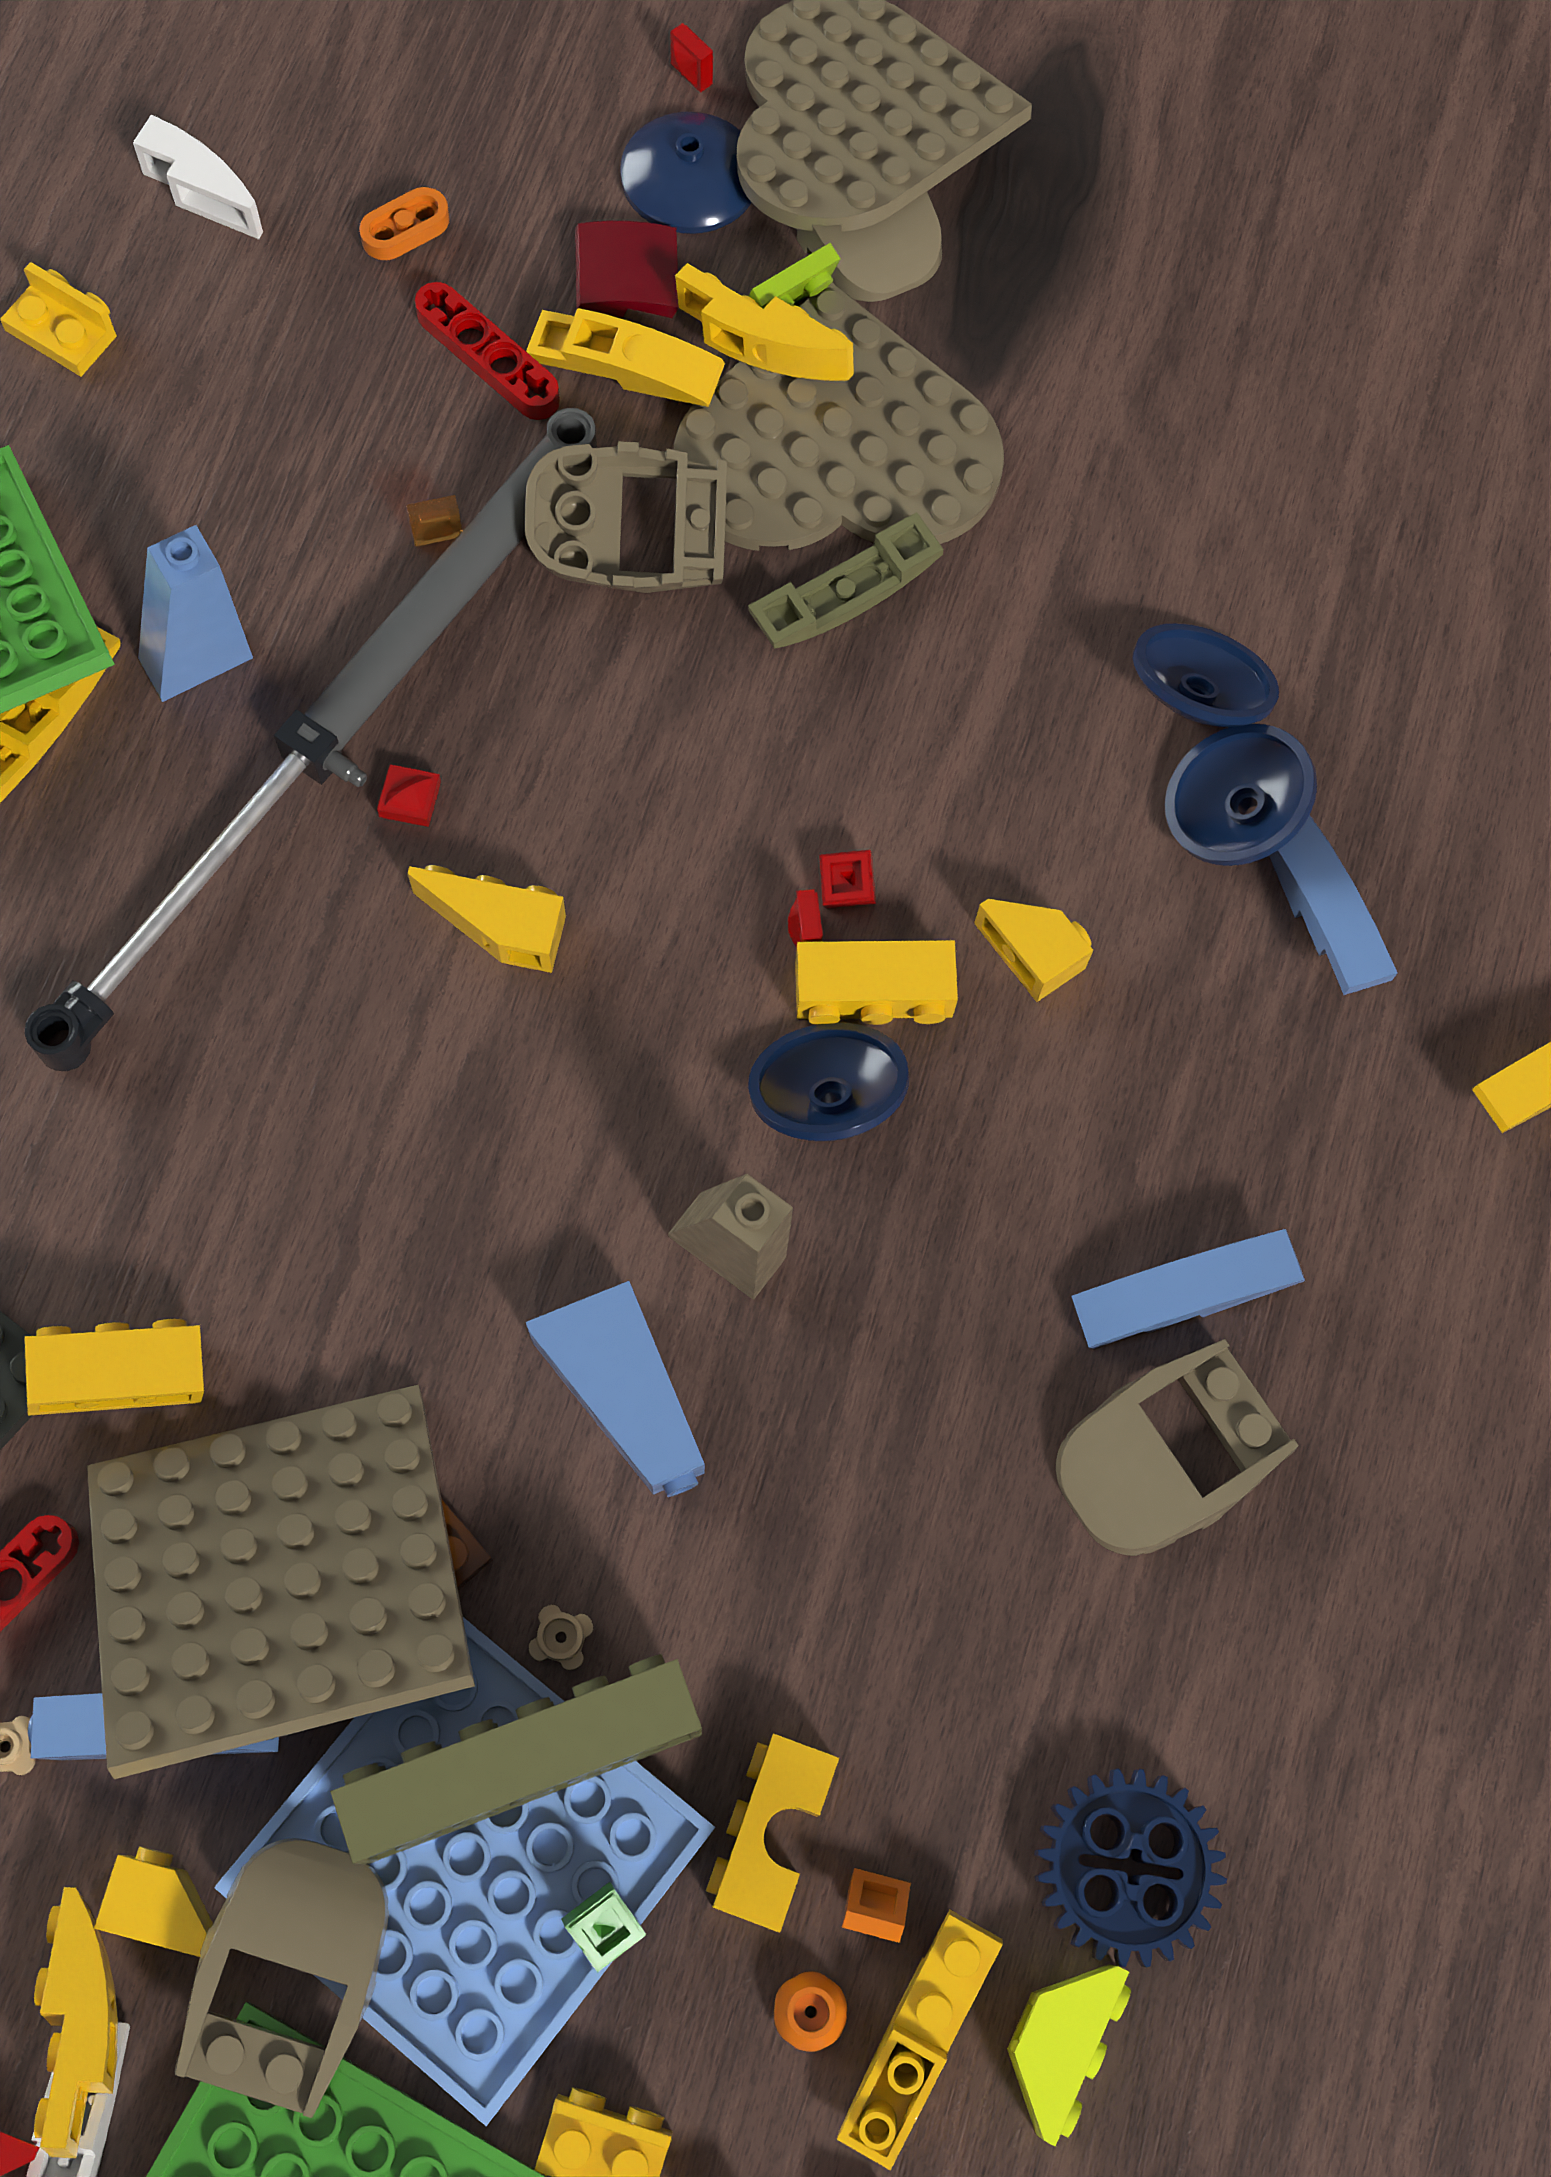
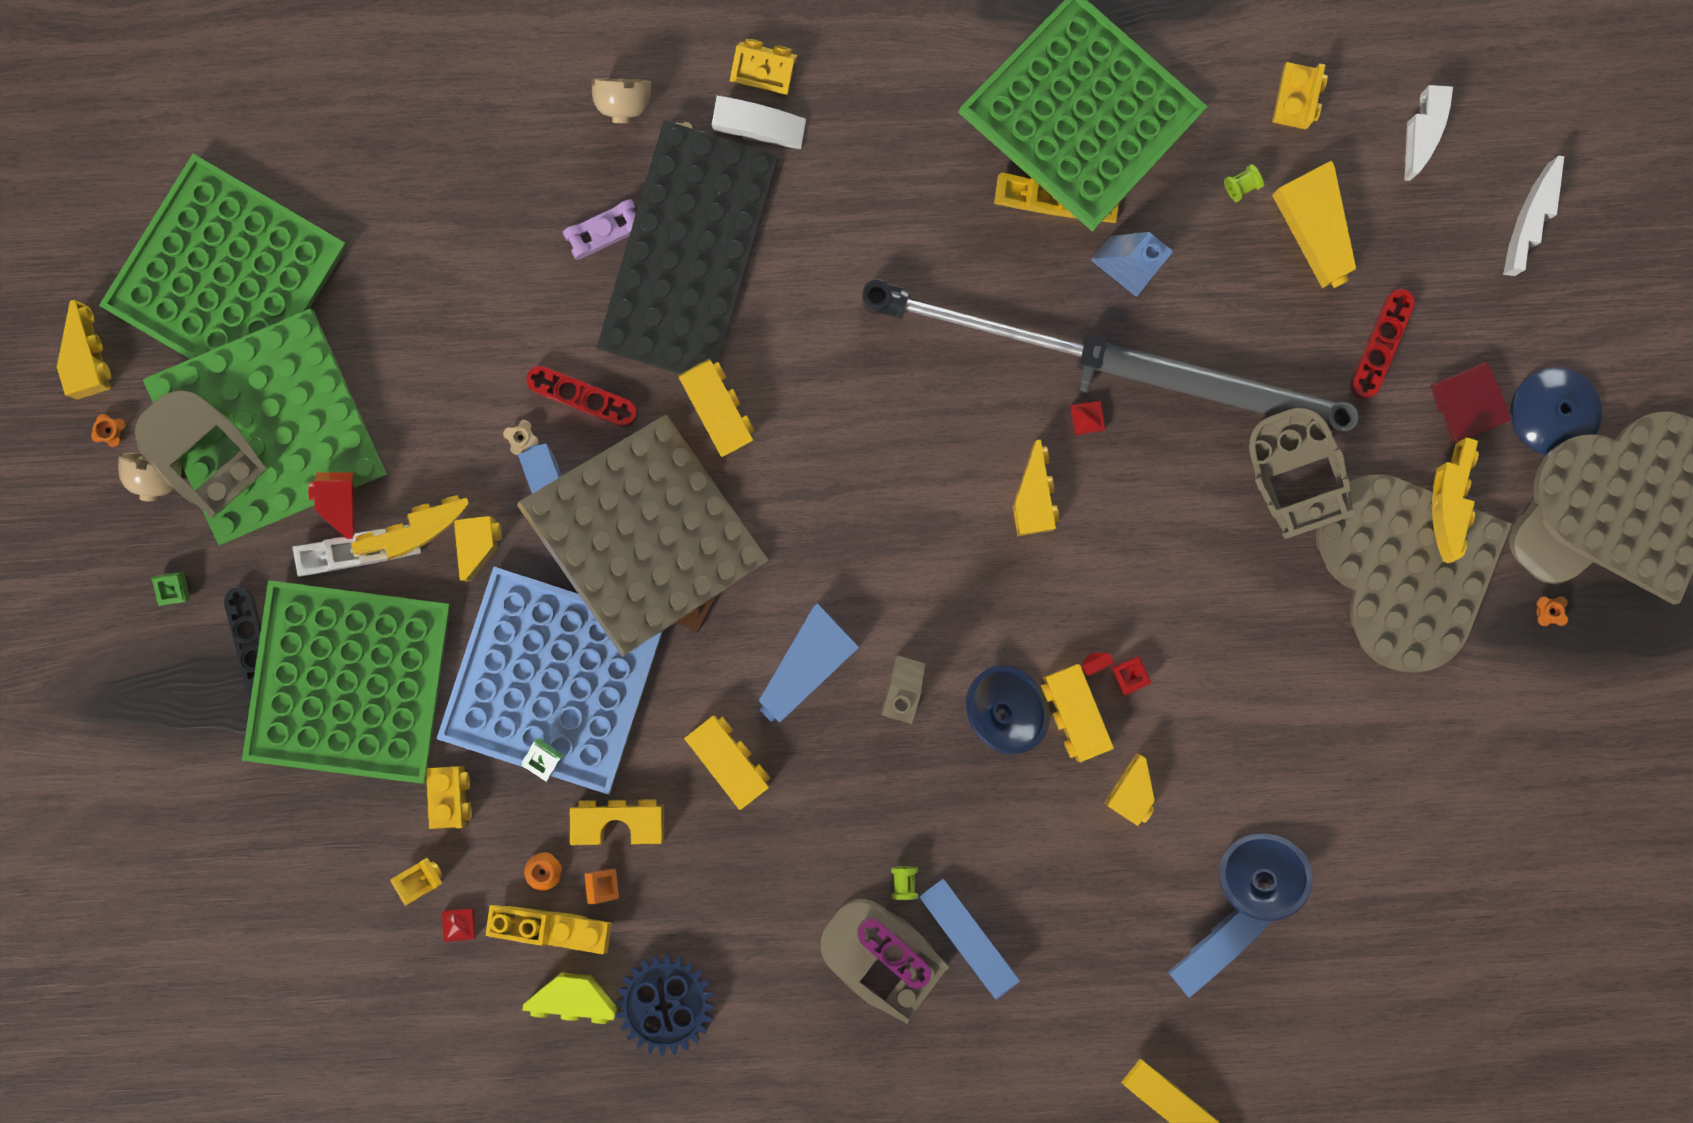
camera: 75 degrees right, 15 degrees up
(151, 439) = (1243, 183): none -> lime bush
(266, 363) = (1319, 223): none -> yellow slope
(306, 1912) = (496, 618): dark tan slope -> none
(383, 83) = (1538, 208): none -> white slope
(402, 223) = (1446, 258): orange plate -> none
(434, 520) = (1257, 362): clear orange tile -> none
(515, 1763) = (598, 689): olive brick -> none
(545, 1643) = (677, 676): tan plate -> none
(628, 352) = (1407, 427): yellow slope -> none
(691, 57) = (1634, 382): red tile -> none
(738, 1584) = (728, 761): none -> yellow brick
(799, 280) = (1504, 513): lime plate -> none
(849, 588) = (1311, 609): olive slope -> none
(978, 288) = (1543, 611): none -> orange plate
(1057, 1361) = (904, 883): none -> lime bush
(1197, 1387) = (904, 974): none -> magenta beam
(1205, 675) = (1333, 833): dark blue dish -> none

